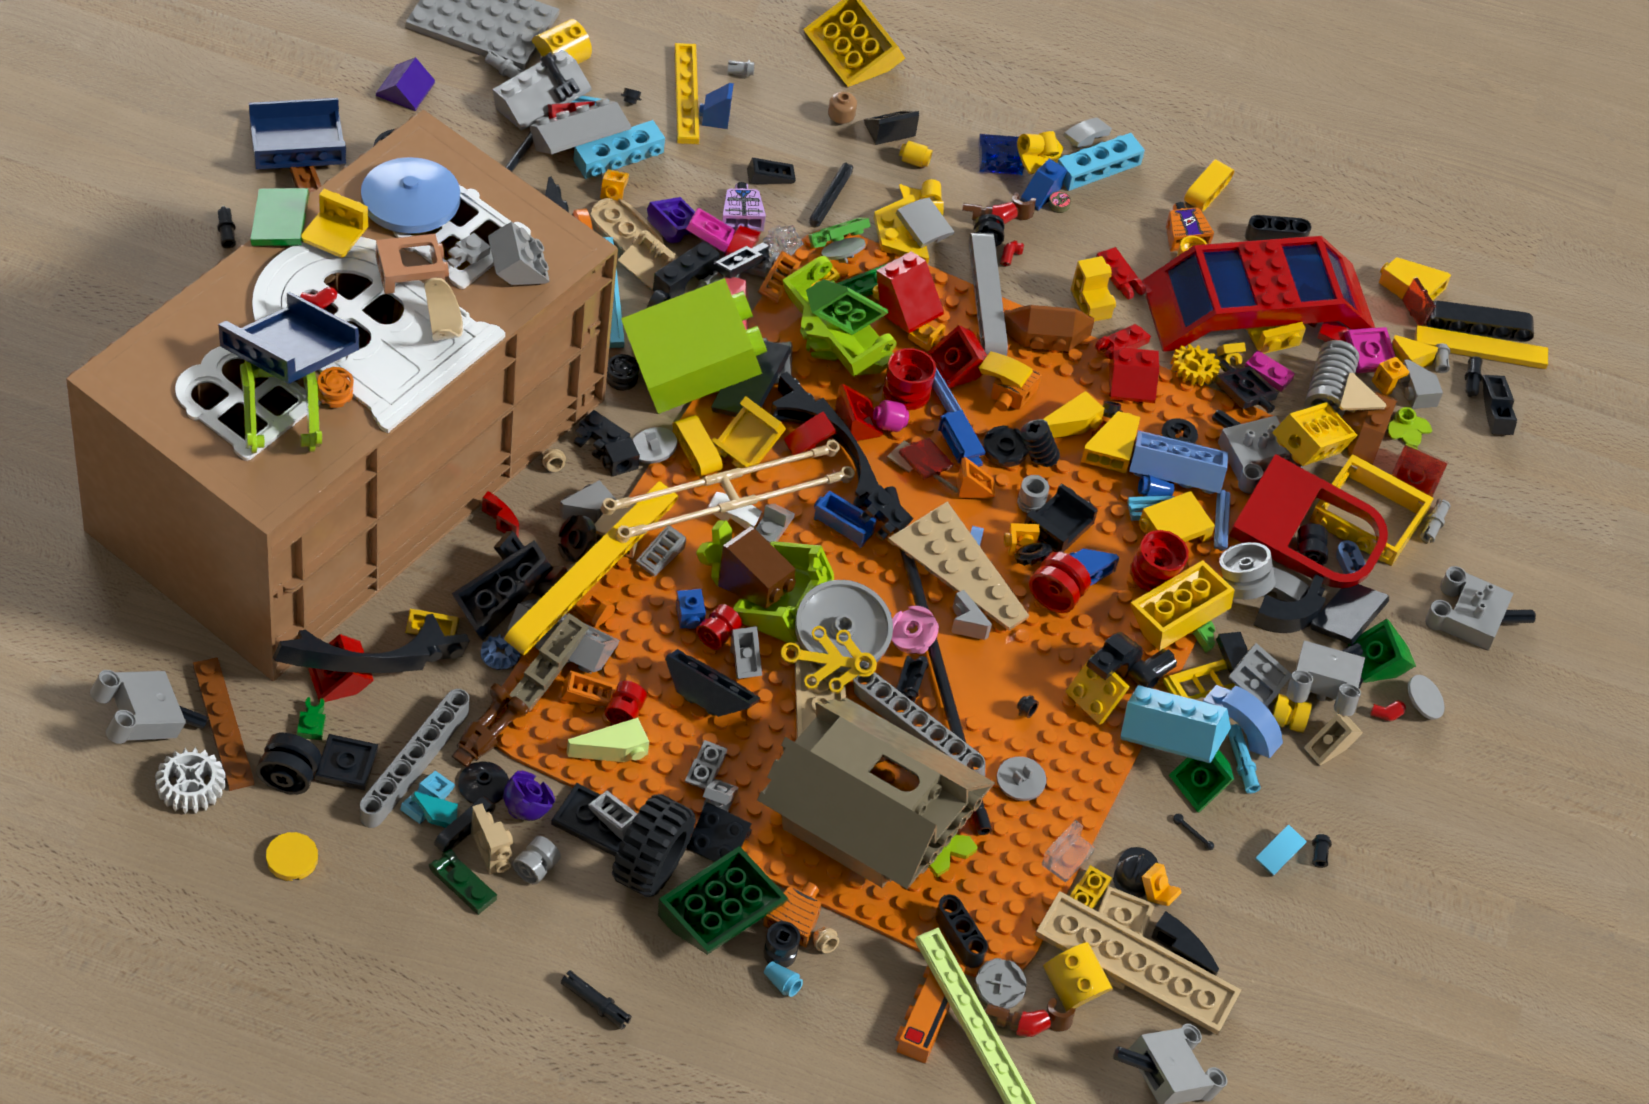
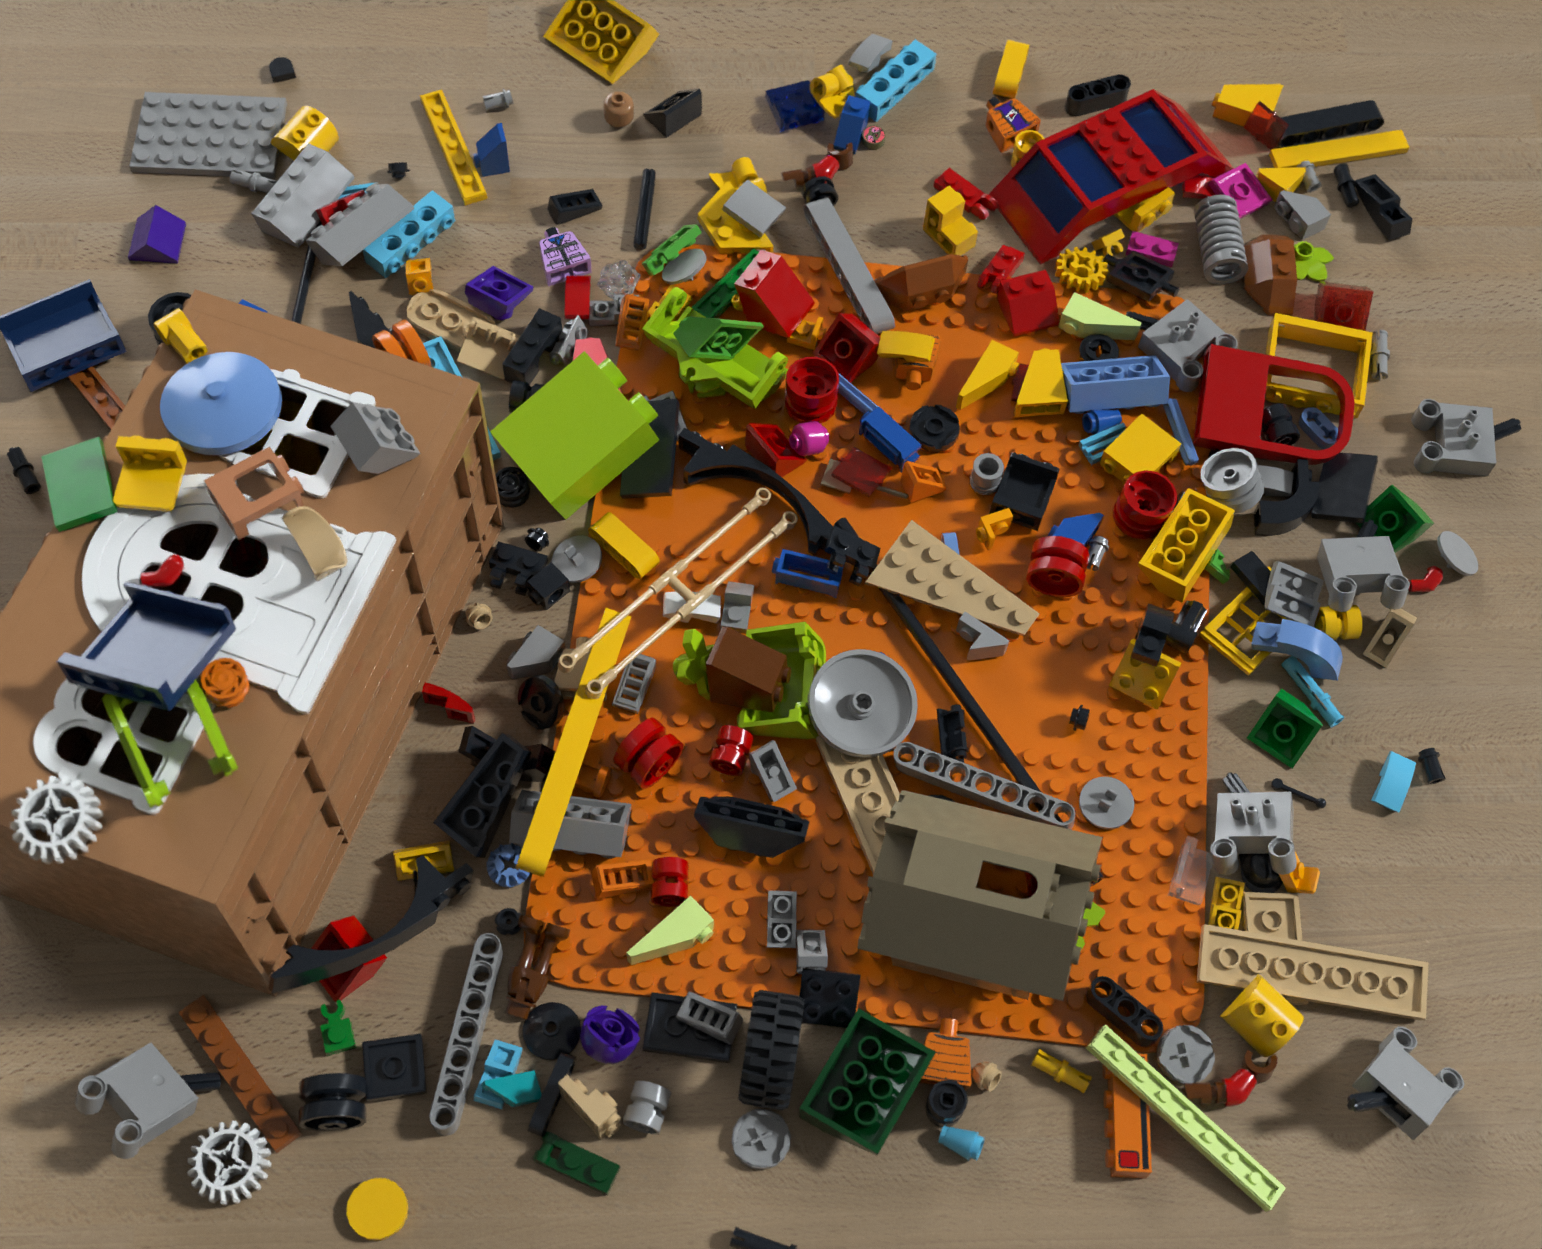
camera: 15 degrees left, 10 degrees up
(180, 442) = (50, 798): none -> white gear
(397, 133) = (178, 332): none -> yellow piece
(470, 249) = (314, 447): light grey plate -> none
(481, 686) = (503, 916): none -> black plate
(548, 60) = (325, 184): black hinge -> none
(550, 660) = (570, 866): dark tan slope -> none
(619, 919) = (761, 1139): none -> light grey tile
(627, 419) = (537, 539): none -> black plate
(648, 602) = (648, 753): none -> red wheel
(690, 608) = (695, 739): blue brick -> none
(711, 229) = (540, 292): dark pink plate -> none
(742, 260) = (587, 317): black hinge -> none
(749, 435) = (674, 517): yellow panel -> none
(809, 434) = (735, 491): red slope -> none
(832, 660) = (869, 748): yellow plant -> none
(889, 958) = (1061, 1071): none -> yellow pin
(915, 154) = (712, 134): yellow brick -> none
(920, 640) = (944, 666): bright pink plate -> none
(1009, 250) = (847, 209): red arm -> none
(1033, 553) = (1015, 541): black gear -> none
(1040, 443) = (971, 414): black piece -> none
(1104, 583) = (1098, 547): none -> light grey pin
(1111, 408) = (1024, 348): black plate -> none
(1135, 833) = (1253, 826): none -> light grey piece
(1175, 724) = (1240, 686): medium azure slope -> none
(1178, 401) = (1087, 317): none -> yellowish green slope
(1183, 942) = (1348, 931): black slope -> none
(1317, 431) = (1238, 304): yellow brick -> none
(1359, 396) = (1258, 248): tan piece -> none
(1388, 375) = (1270, 213): light orange bracket -> none

